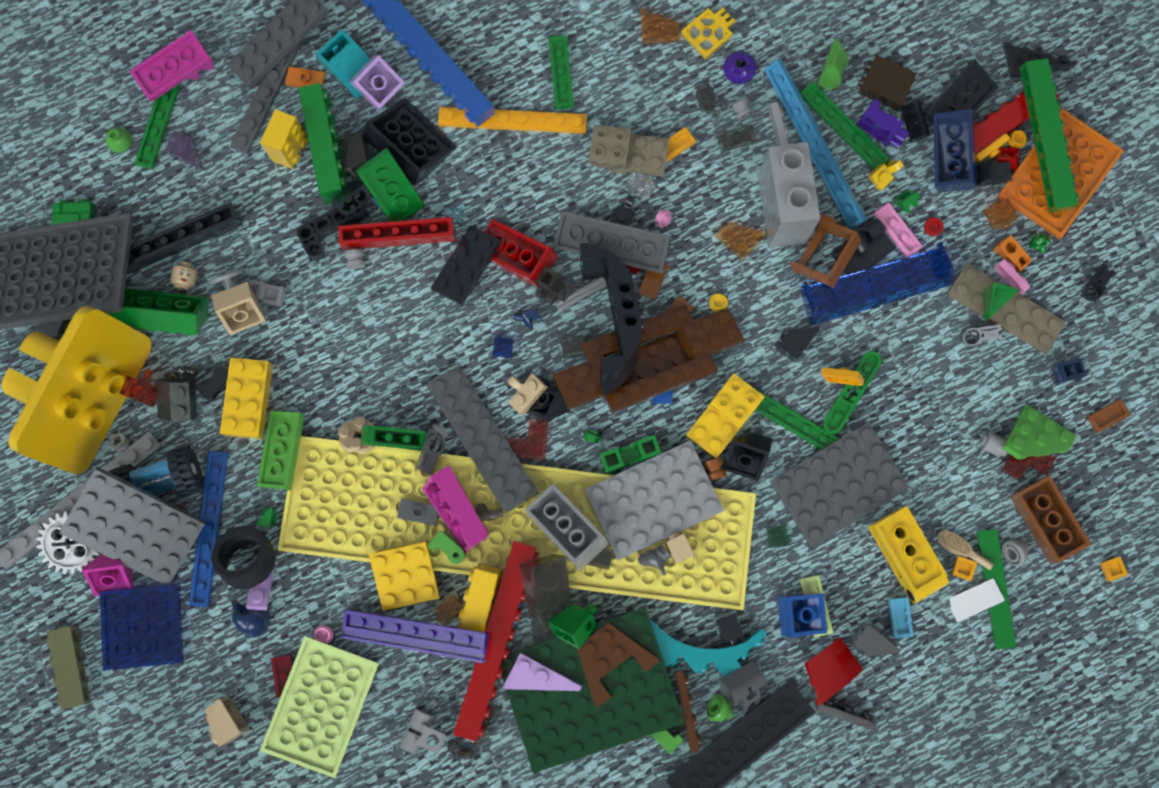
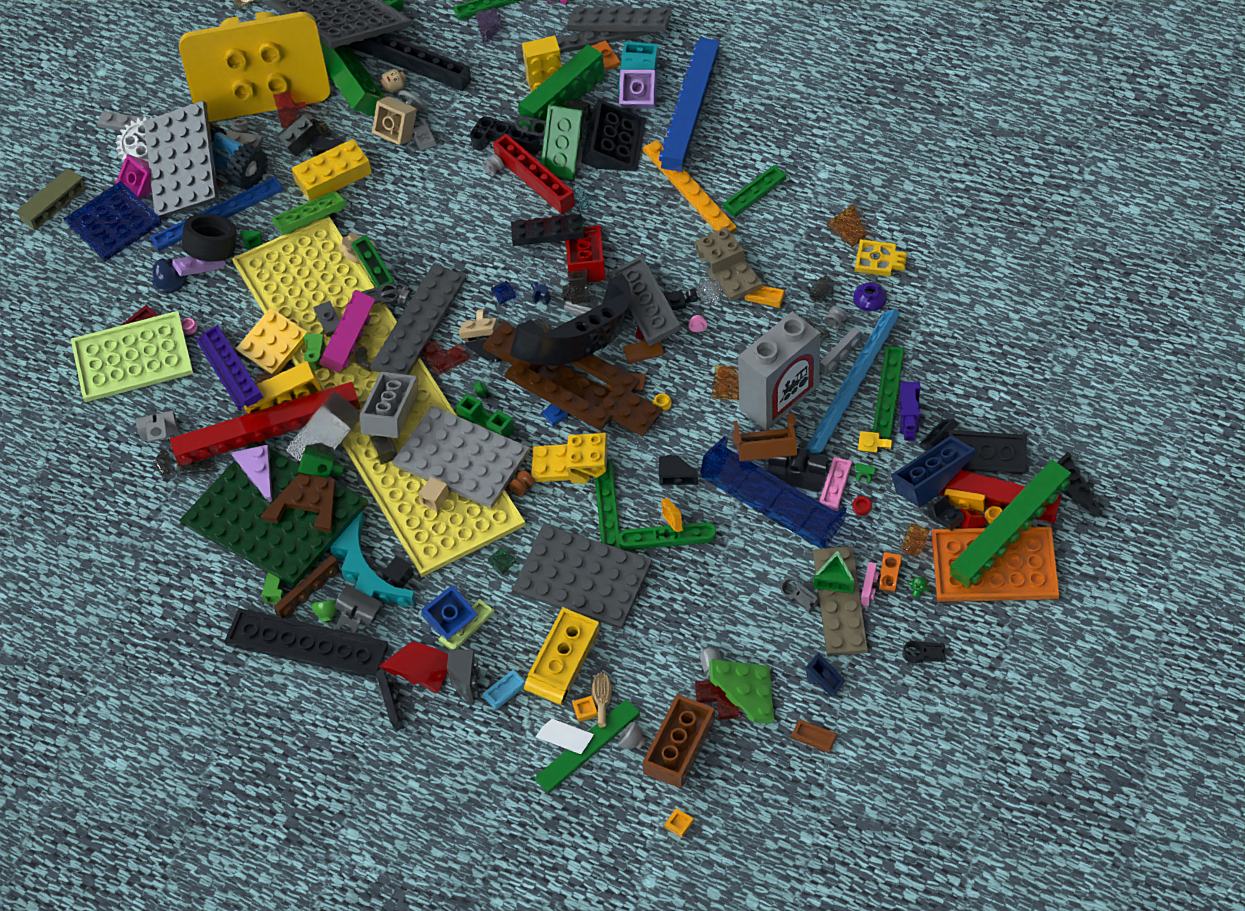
camera: 55 degrees right, 25 degrees down
(225, 721) = (77, 305): tan slope -> none
(655, 558) = (412, 483): dark grey animal -> none
(748, 455) = (552, 496): black slope -> none
(834, 66) = (927, 347): bright green slope -> none
(886, 82) = (951, 395): dark brown brick -> none

